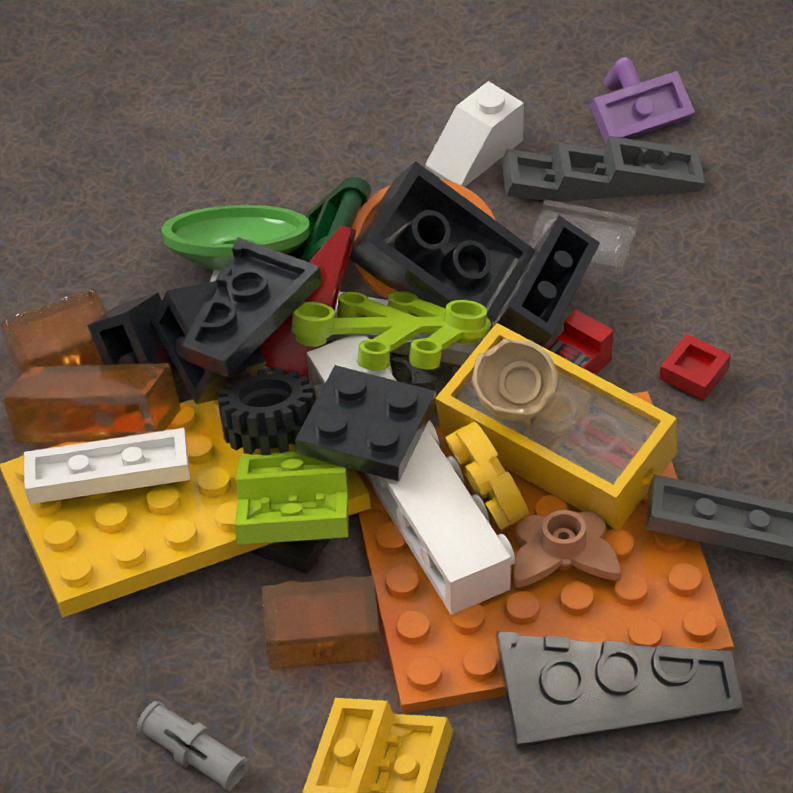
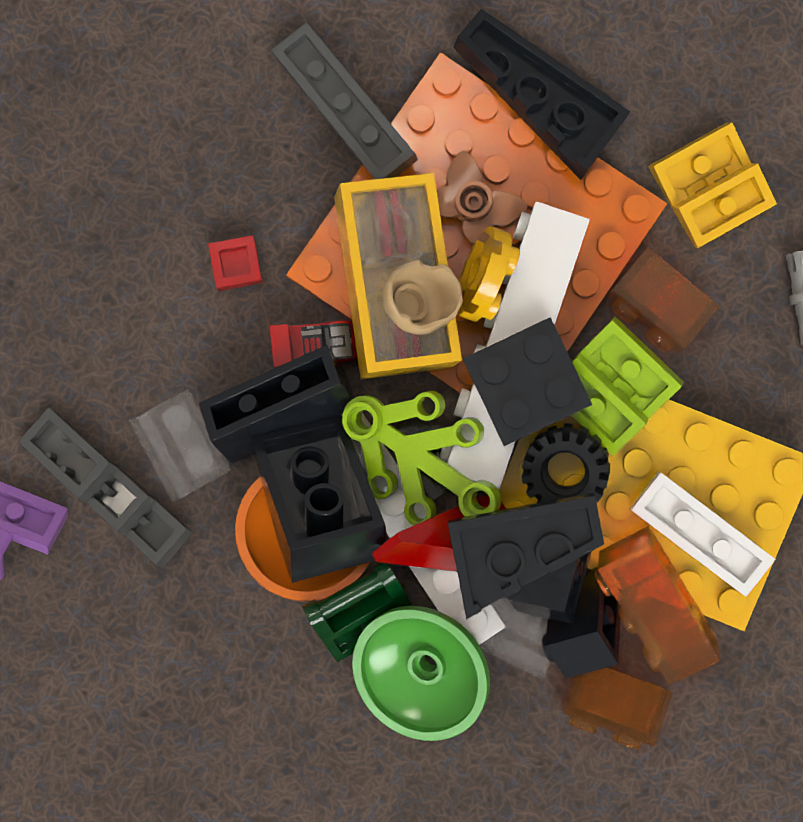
camera: 140 degrees left, 35 degrees up
(477, 135) = (159, 605): white slope -> none

